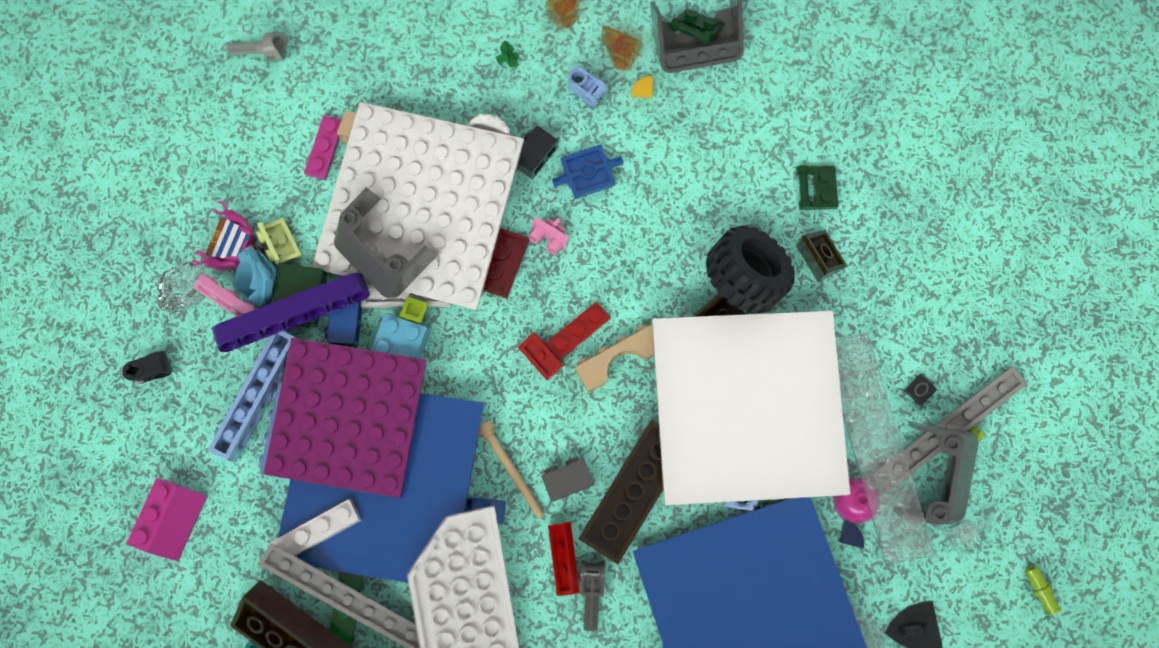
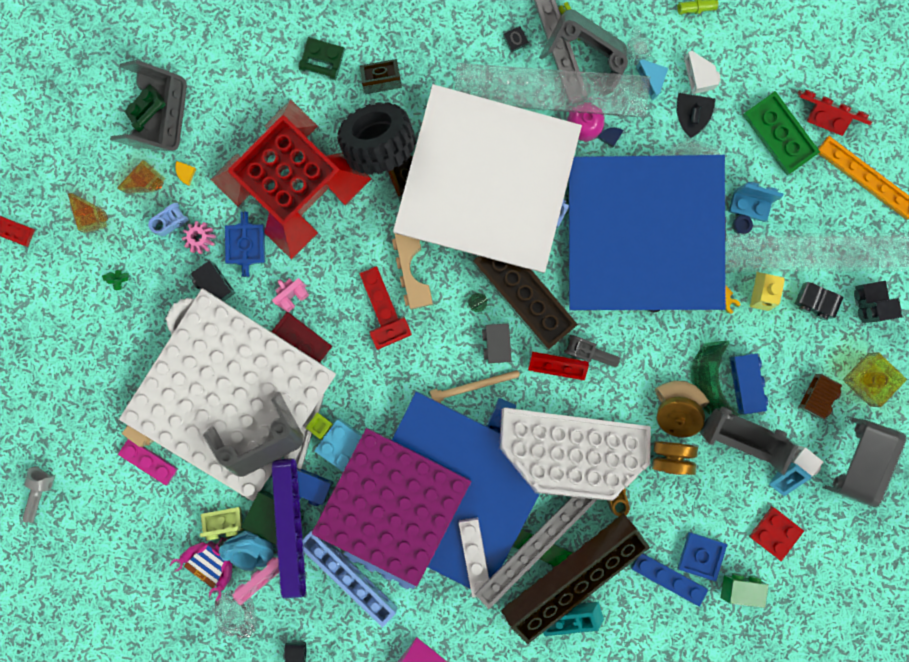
camera: 80 degrees left, 10 degrees up
(582, 115) = (191, 241): none -> bright pink gear
(606, 442) = (477, 302): none -> clear green plate
(642, 196) = (253, 173): none -> red slope
(940, 564) = (657, 75): none -> medium azure slope
(964, 620) = (701, 73): none -> white slope

